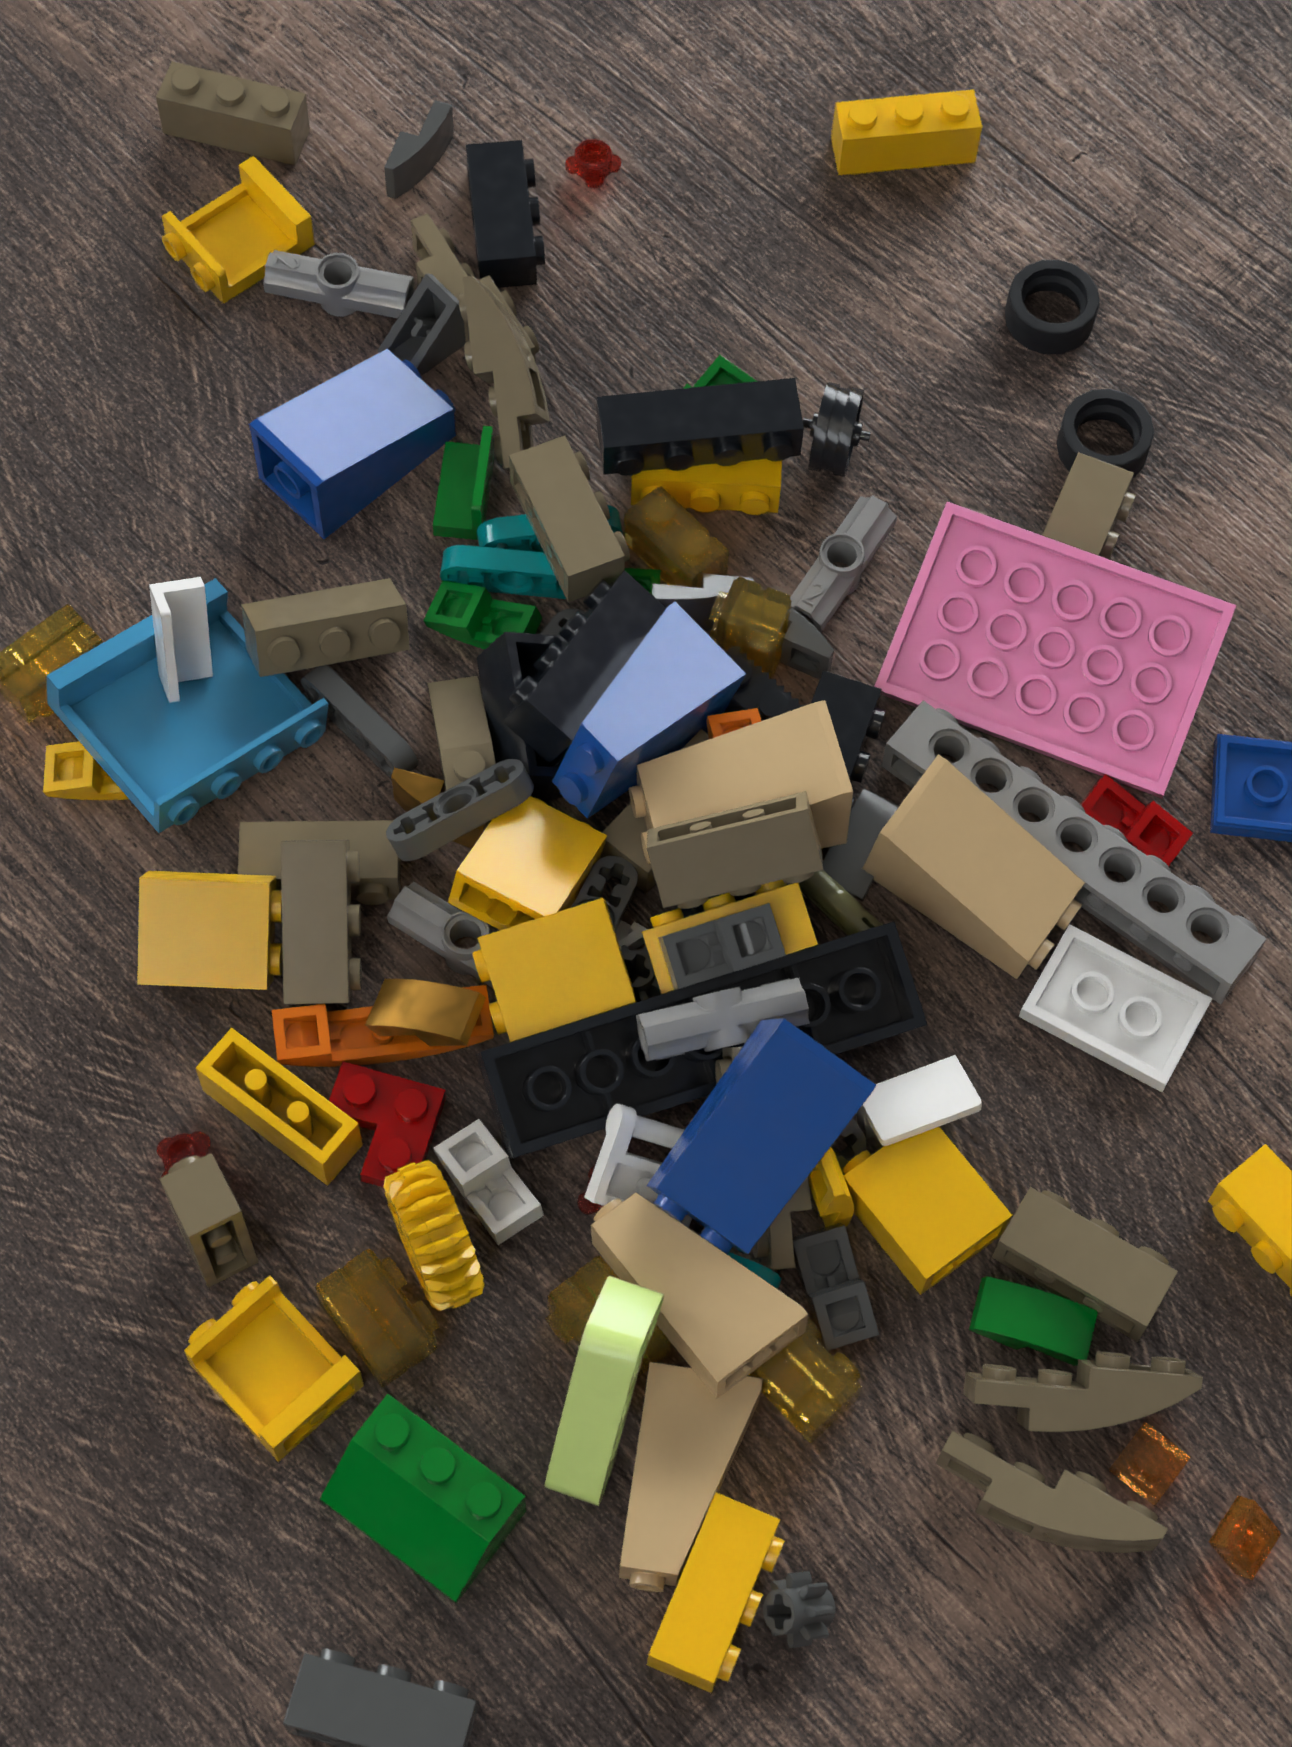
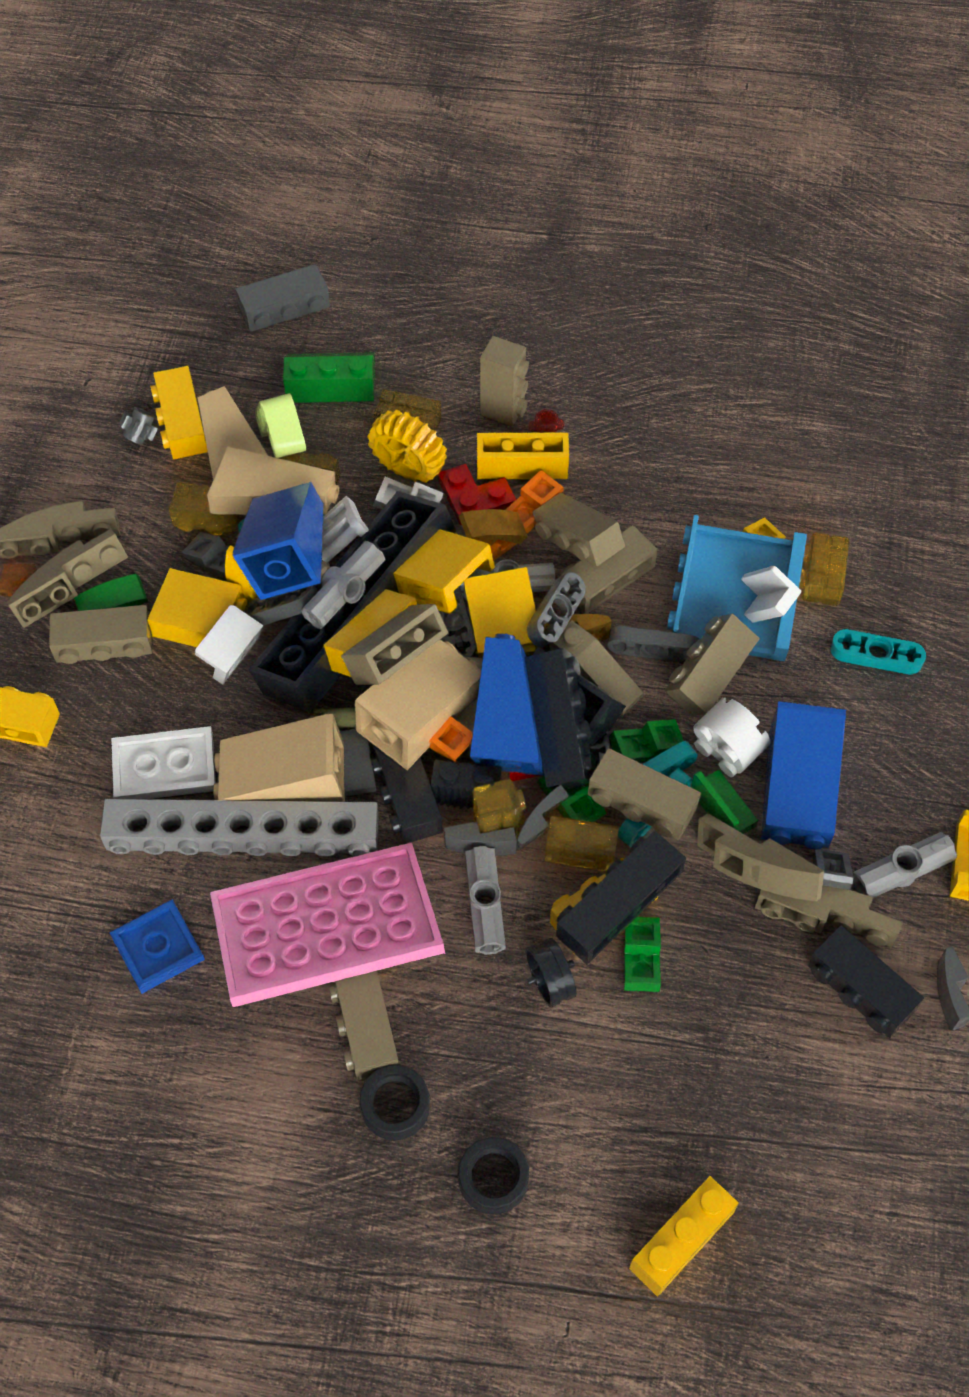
camera: 145 degrees right, 5 degrees down
(97, 550) = (889, 644): none -> teal beam
(208, 930) = (629, 494): yellow brick -> none
(272, 1367) = (435, 375): yellow panel -> none
(393, 531) = (730, 736): none -> white brick
(593, 152) = (858, 1059): clear red plate -> none
(721, 946) = (370, 611): dark grey slope -> none
(1145, 827) = (215, 872): red slope -> none

